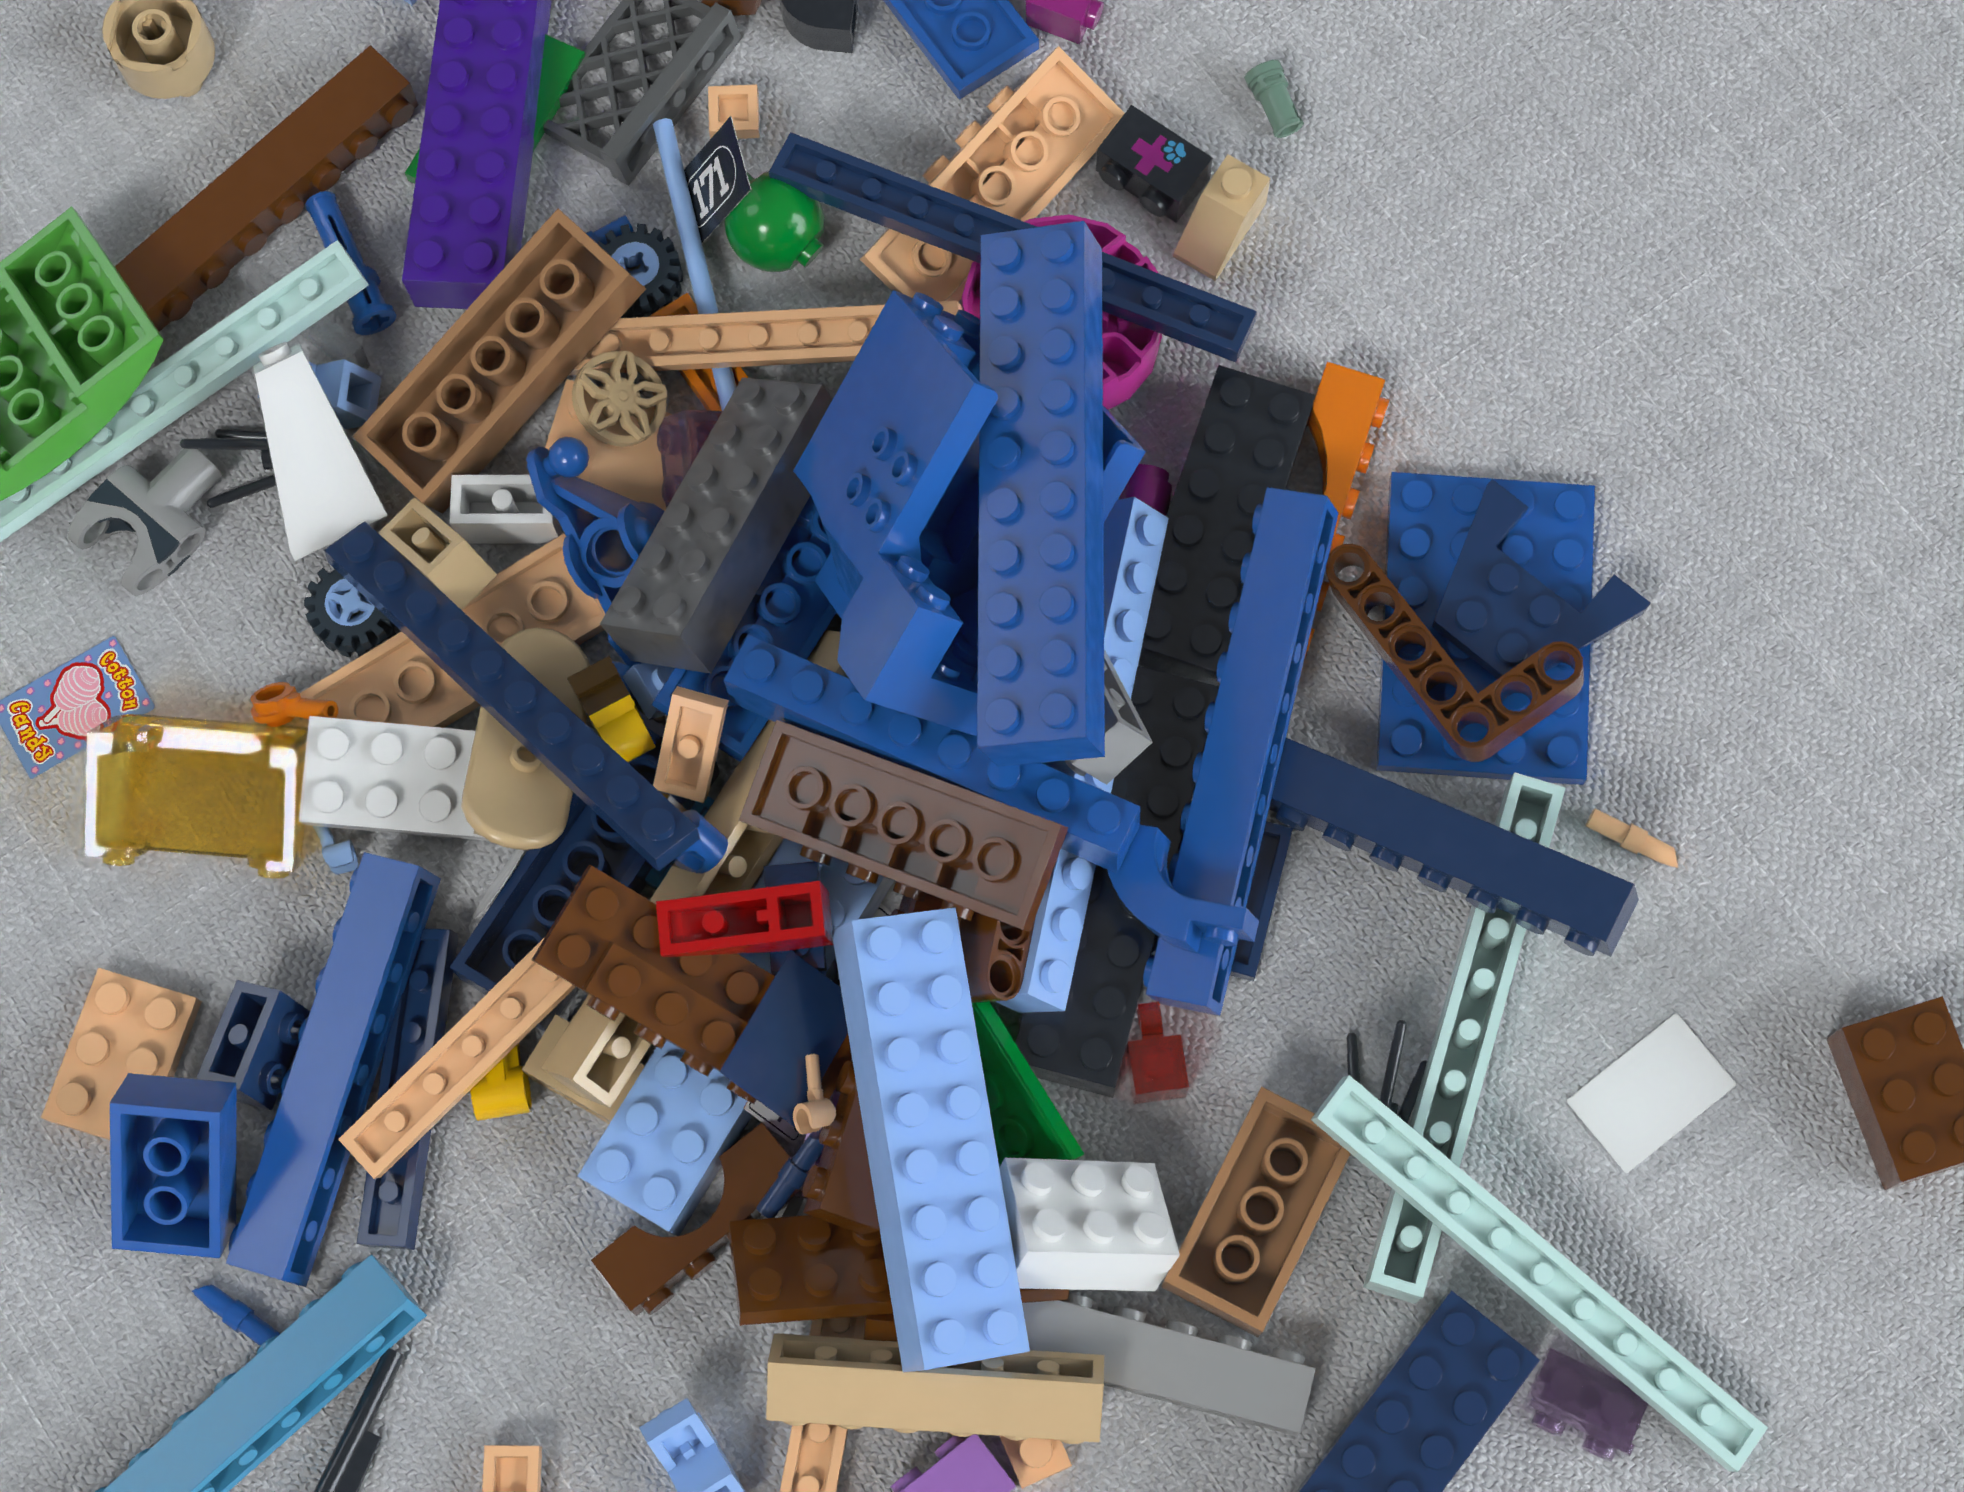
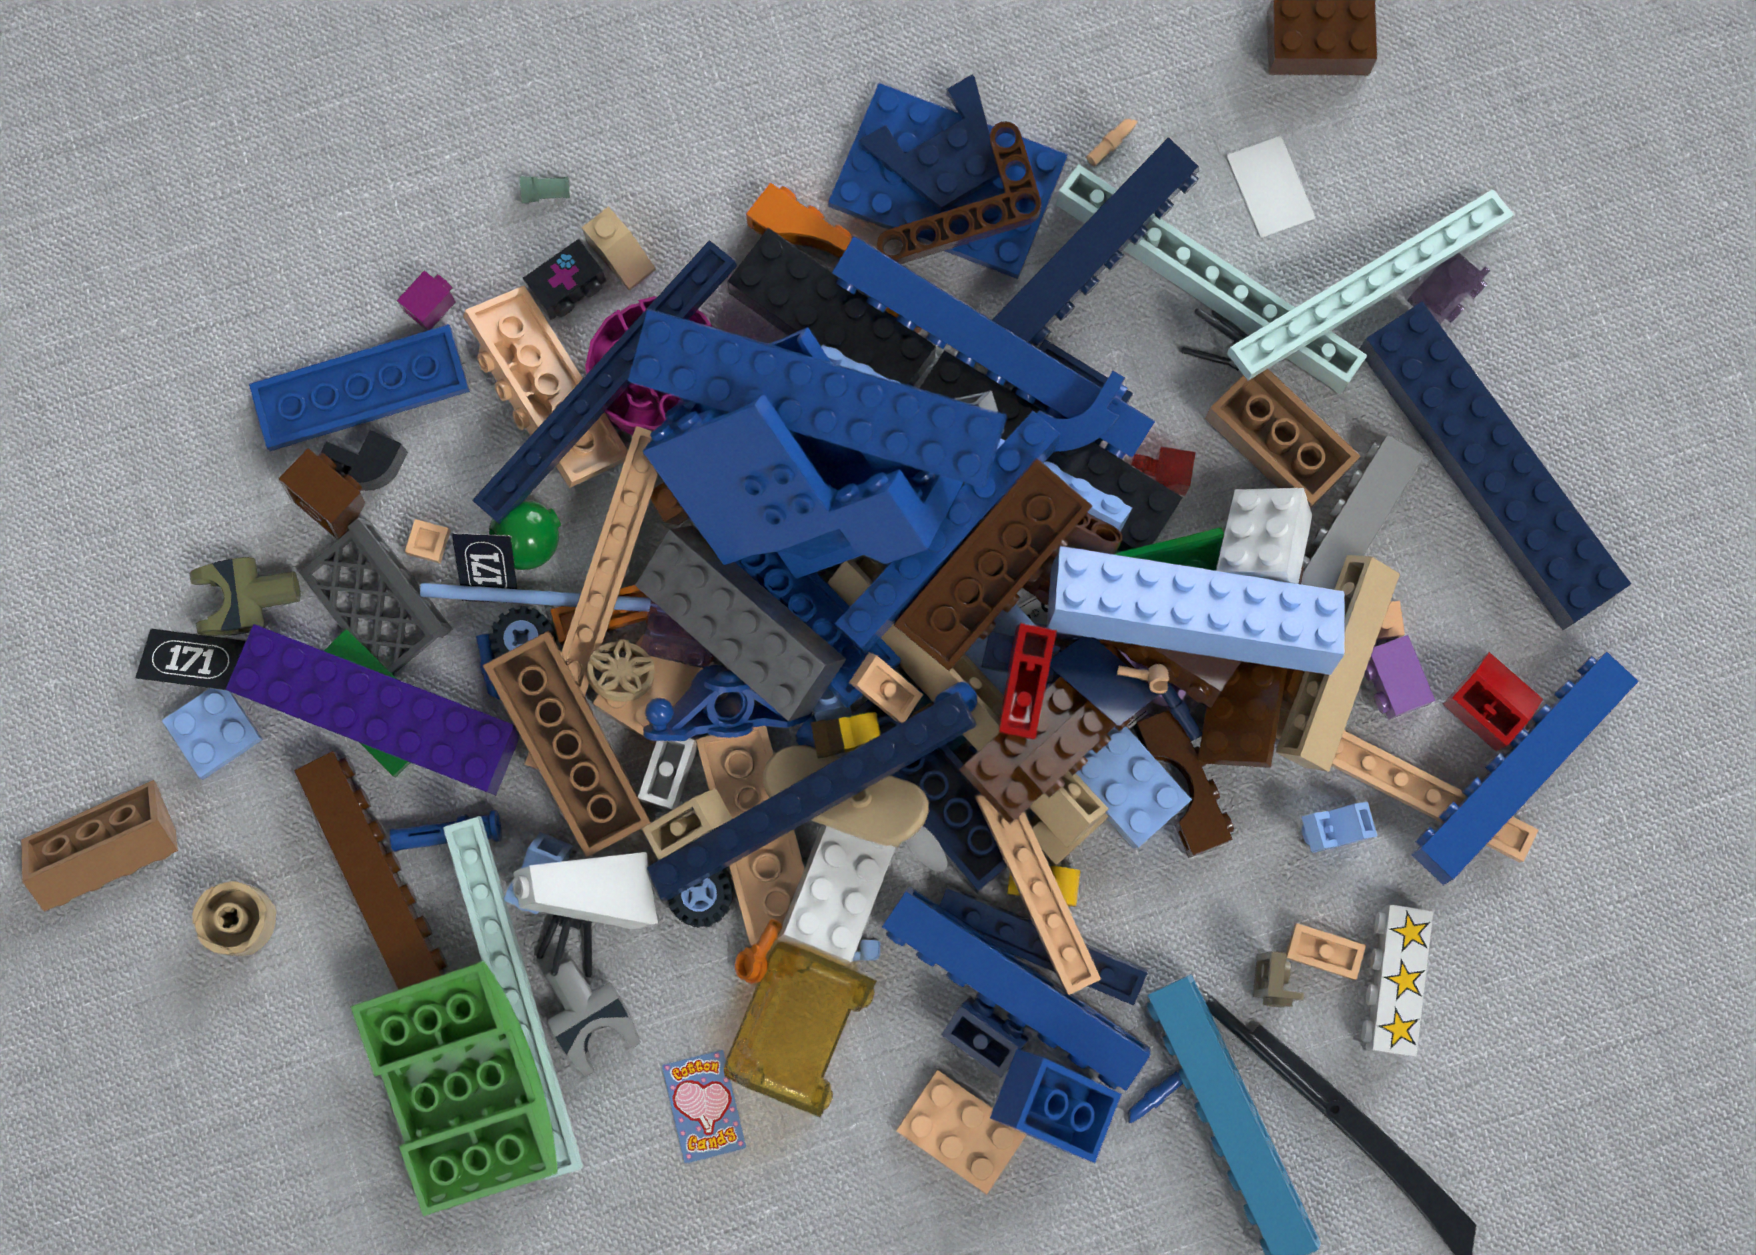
camera: 75 degrees left, 5 degrees up
(442, 1427) = (1270, 976): none -> dark tan bracket

